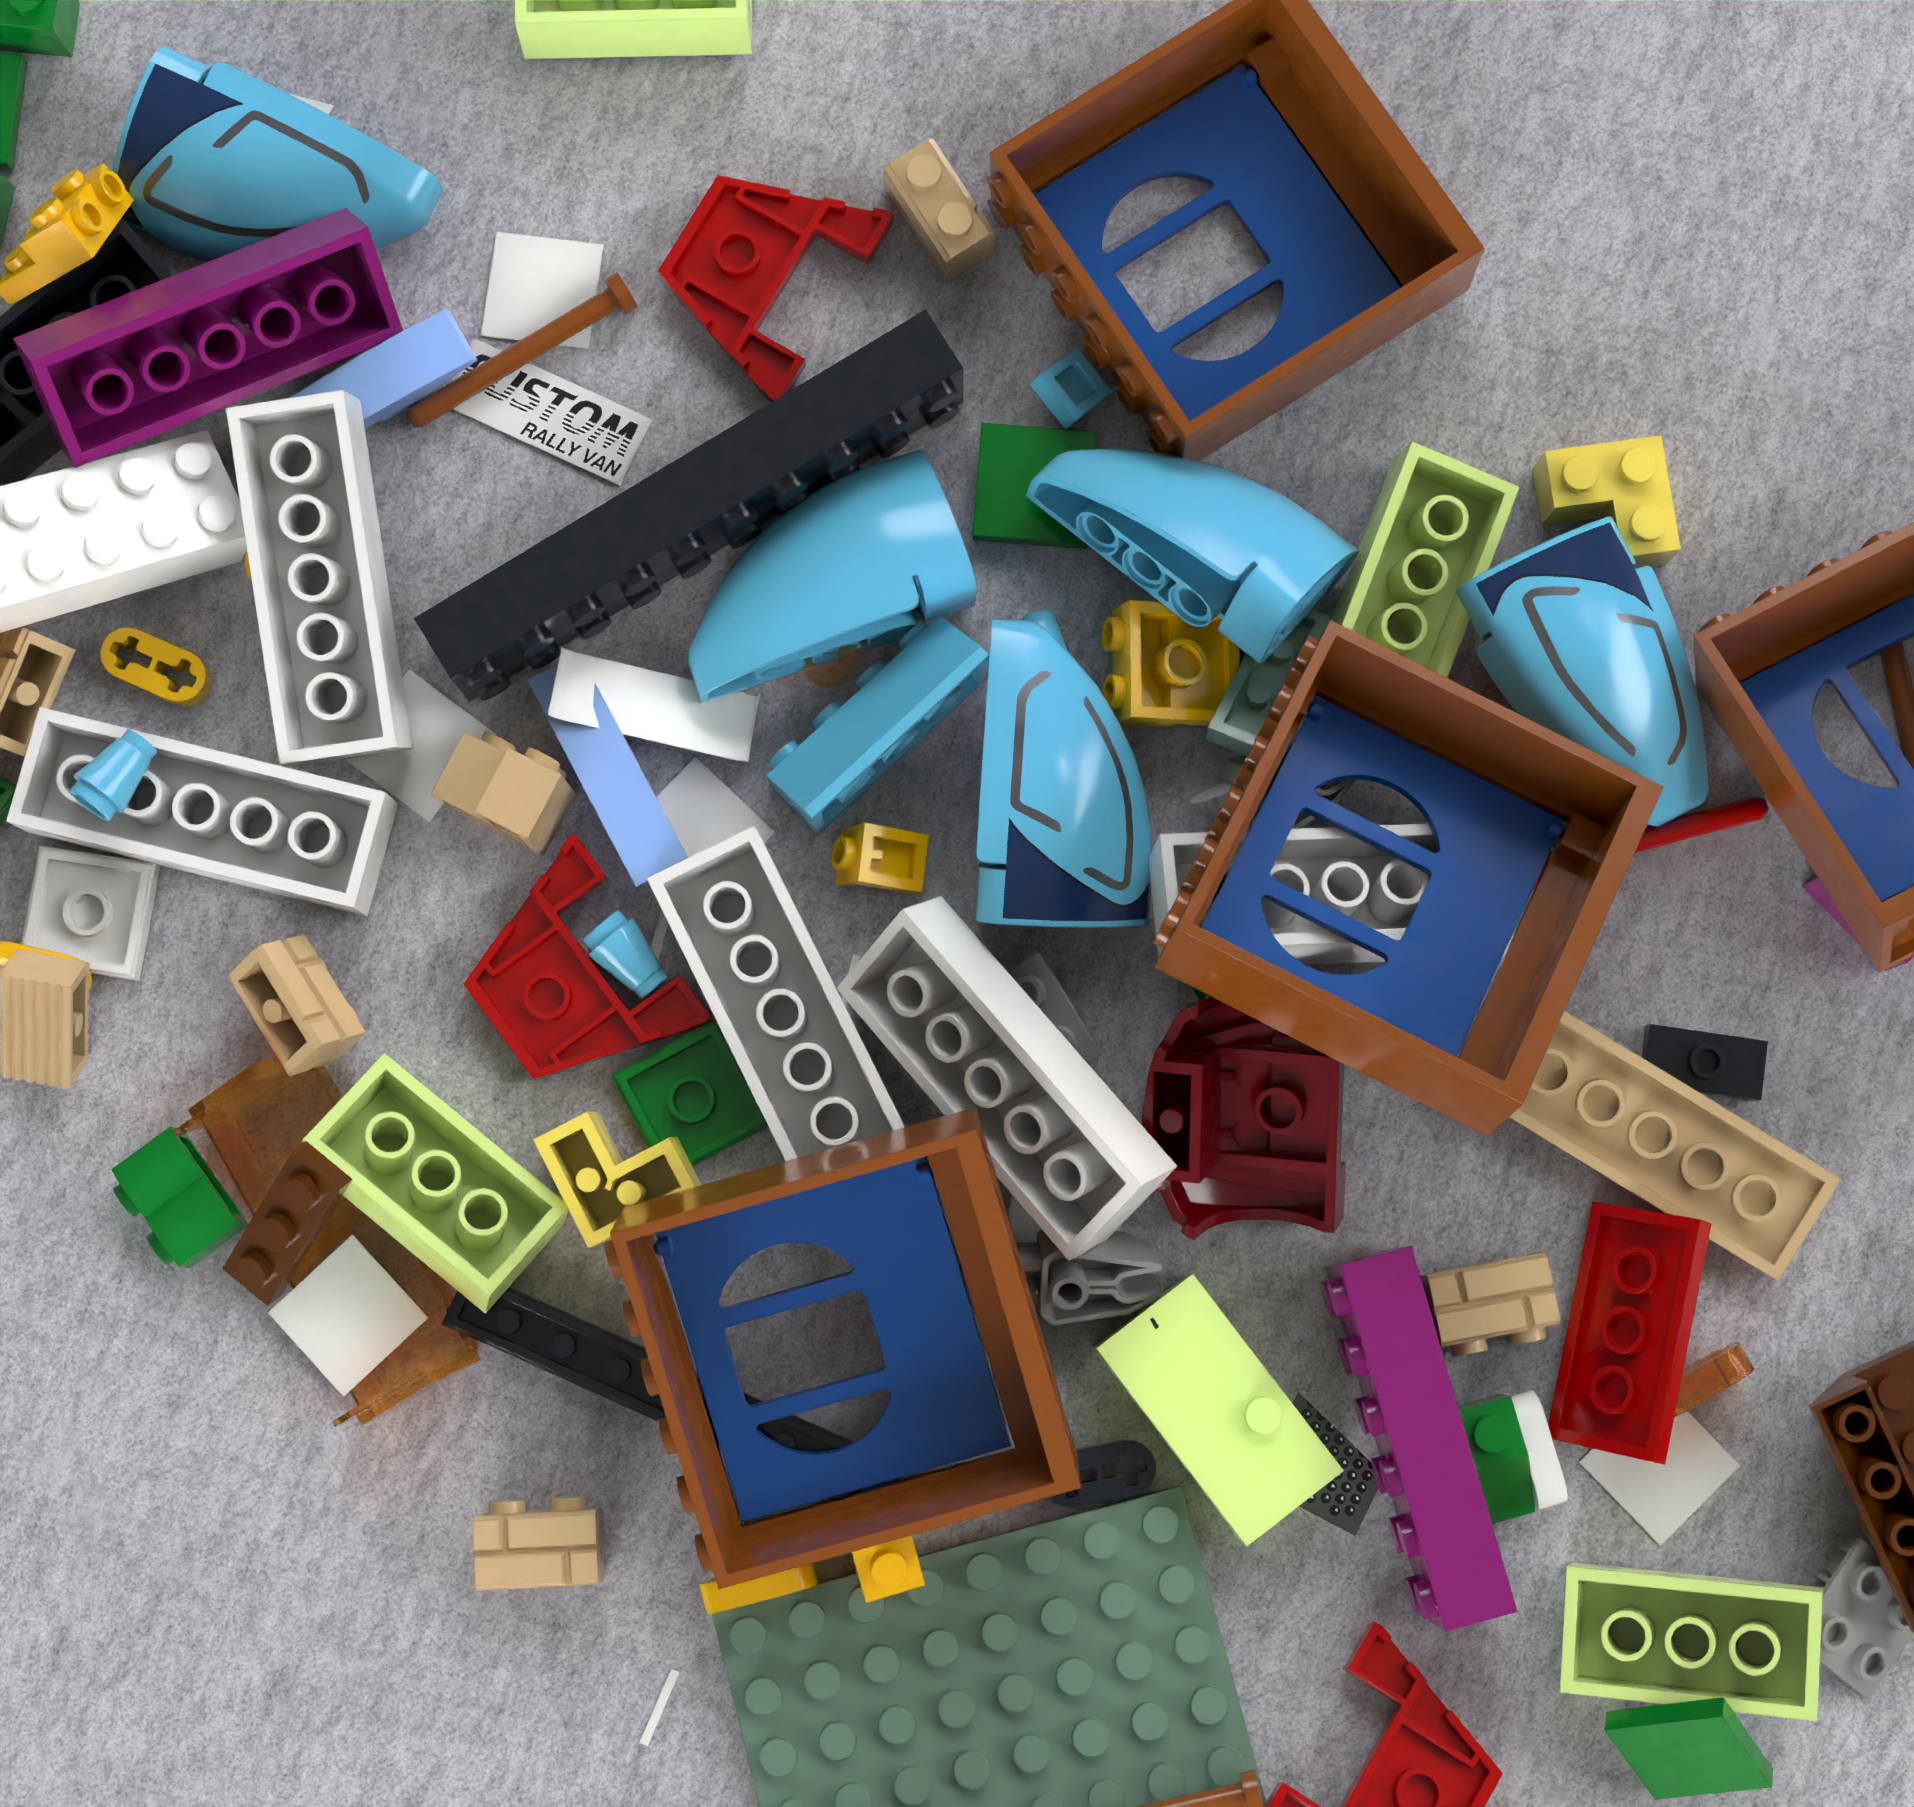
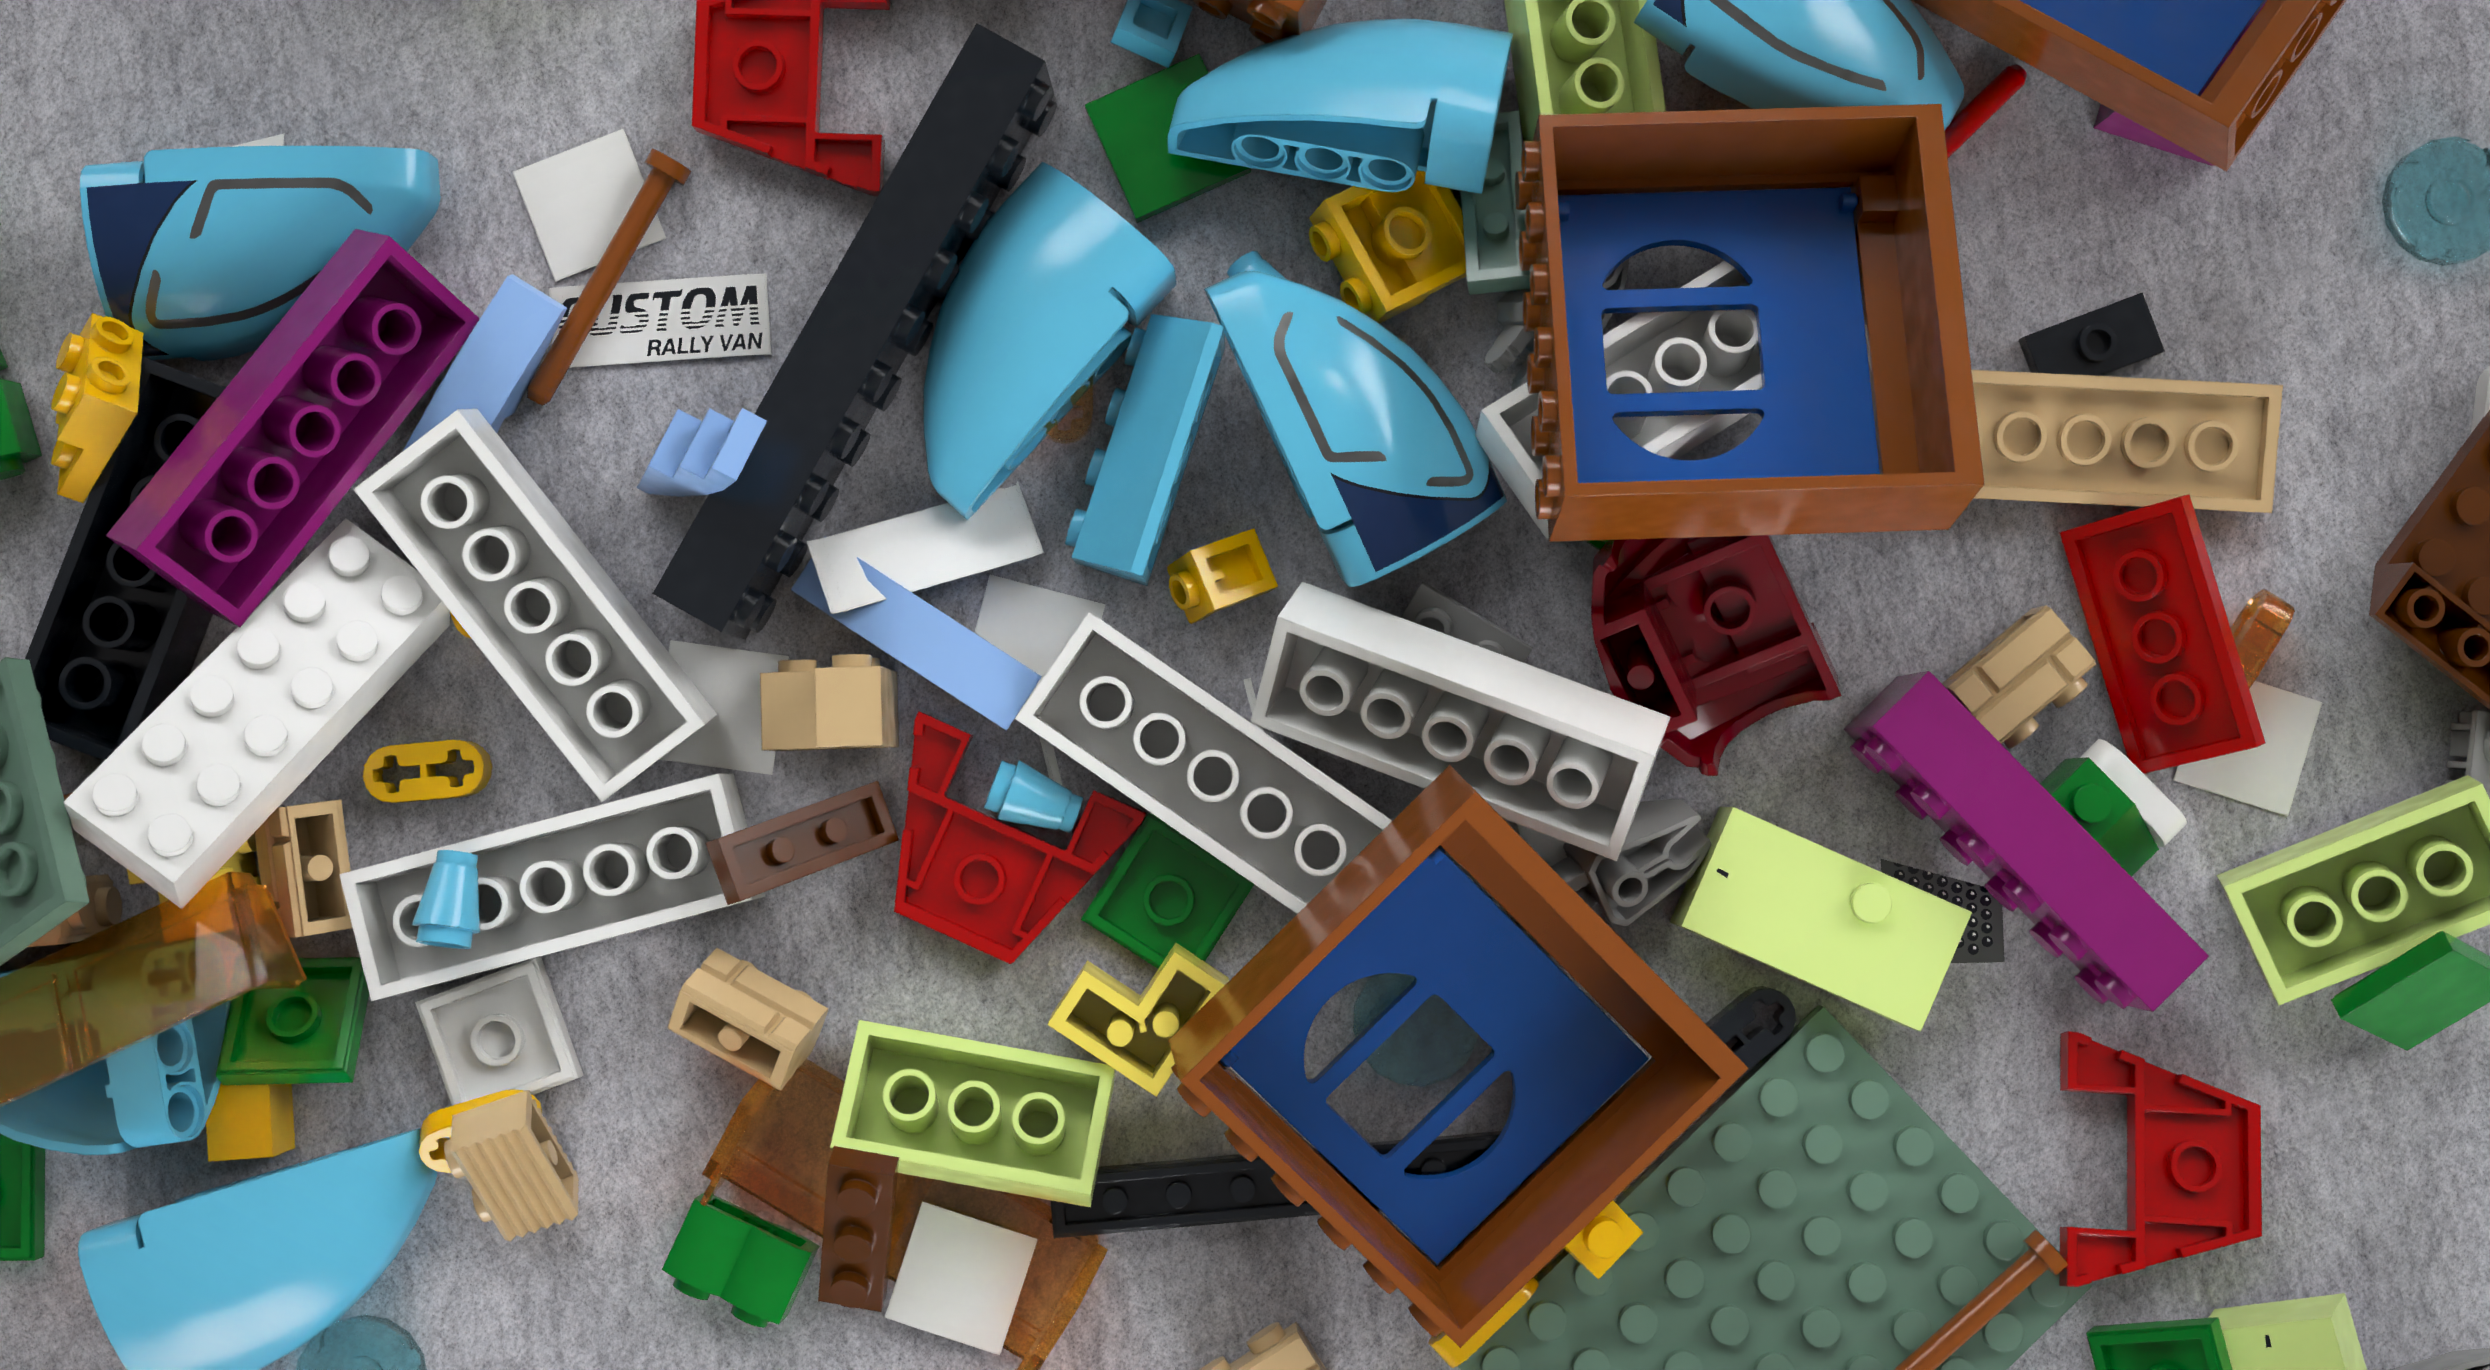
camera: 30 degrees left, 5 degrees up
(420, 884) = (801, 842): none -> reddish brown plate
(513, 528) = (701, 455): none -> light blue slope
(832, 1332) = (1426, 1046): none -> clear light blue tile

